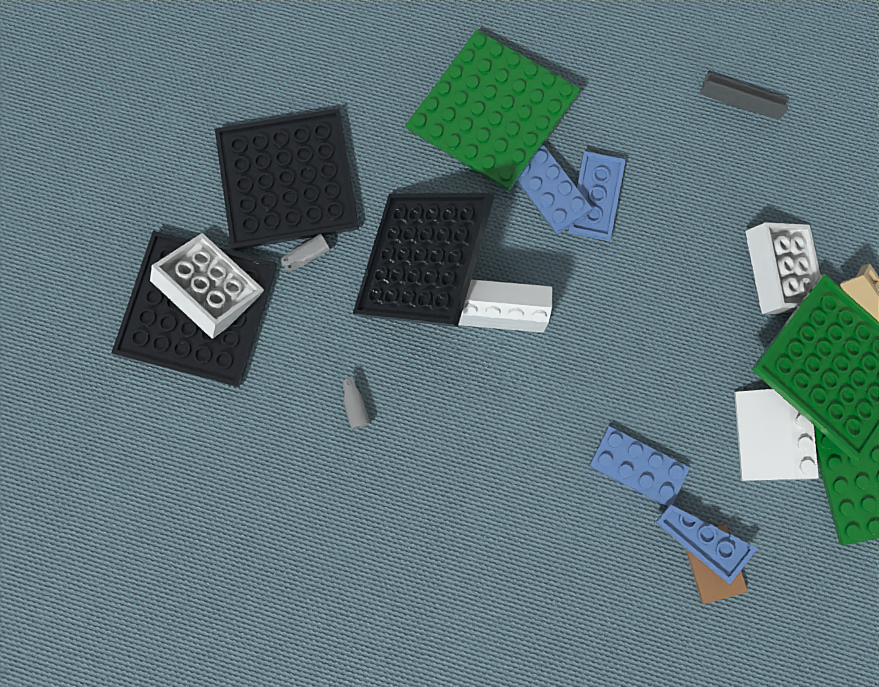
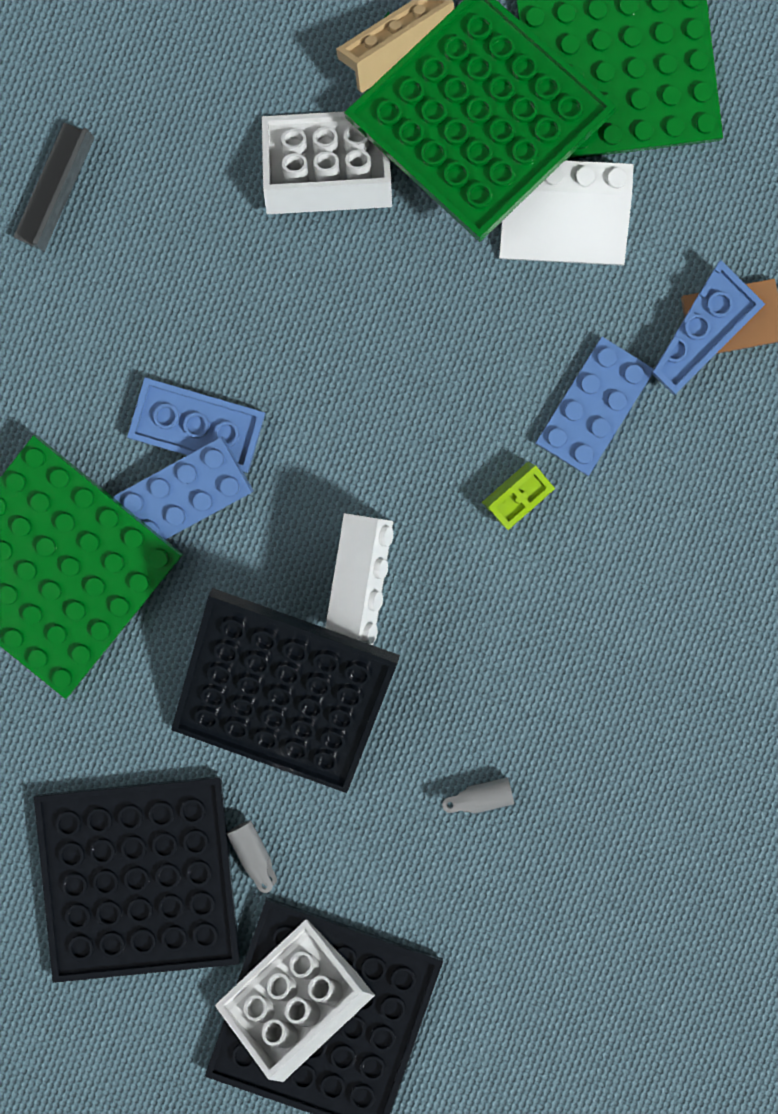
camera: 85 degrees left, 10 degrees up
(571, 416) = (518, 495): none -> lime hinge

